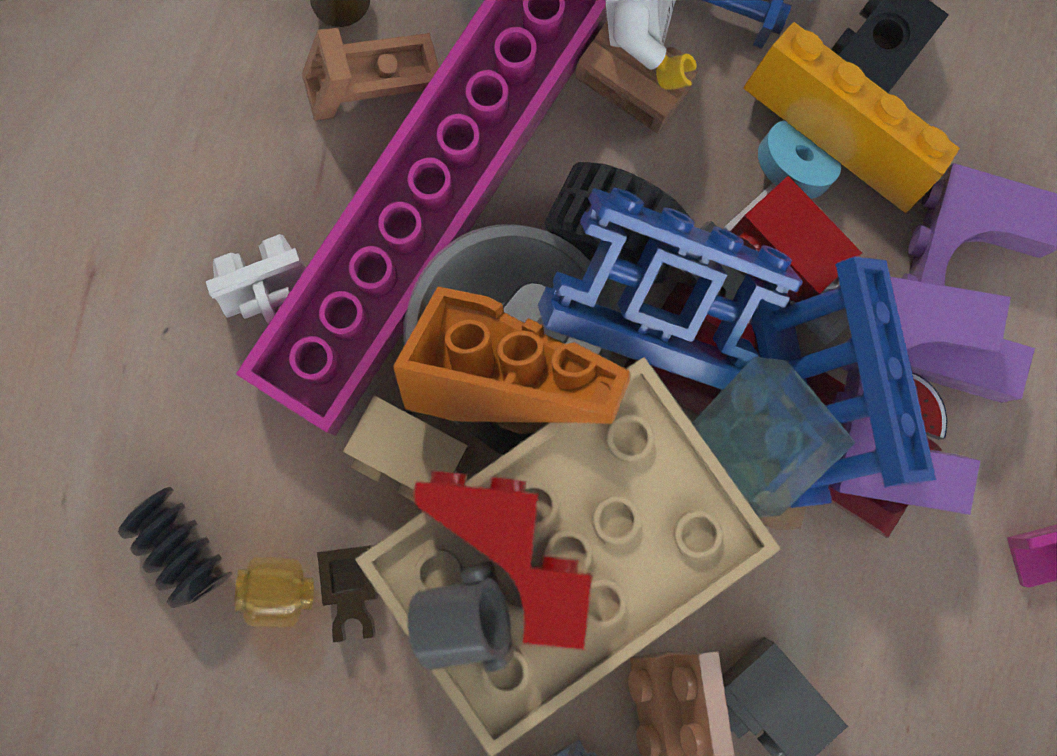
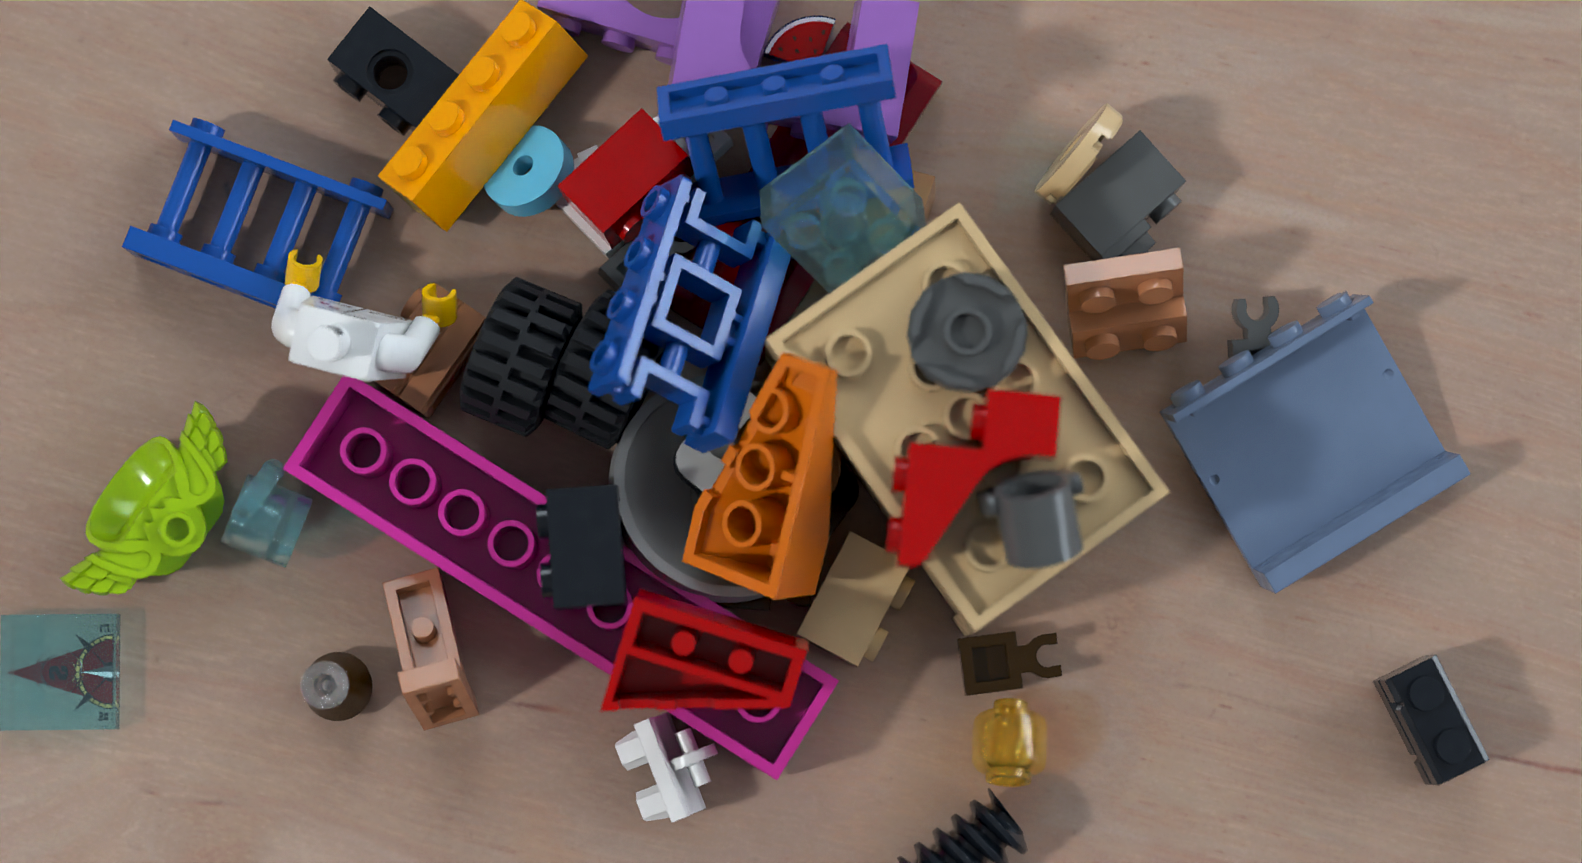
camera: 90 degrees left, 0 degrees up
(342, 299) = (700, 659): none -> red wedge
(448, 194) = (584, 547): none -> black brick
(632, 134) = (518, 356): none -> black tyre
(650, 555) = (967, 332): none -> dark grey tile
(823, 666) = (1078, 154): none -> tan tile

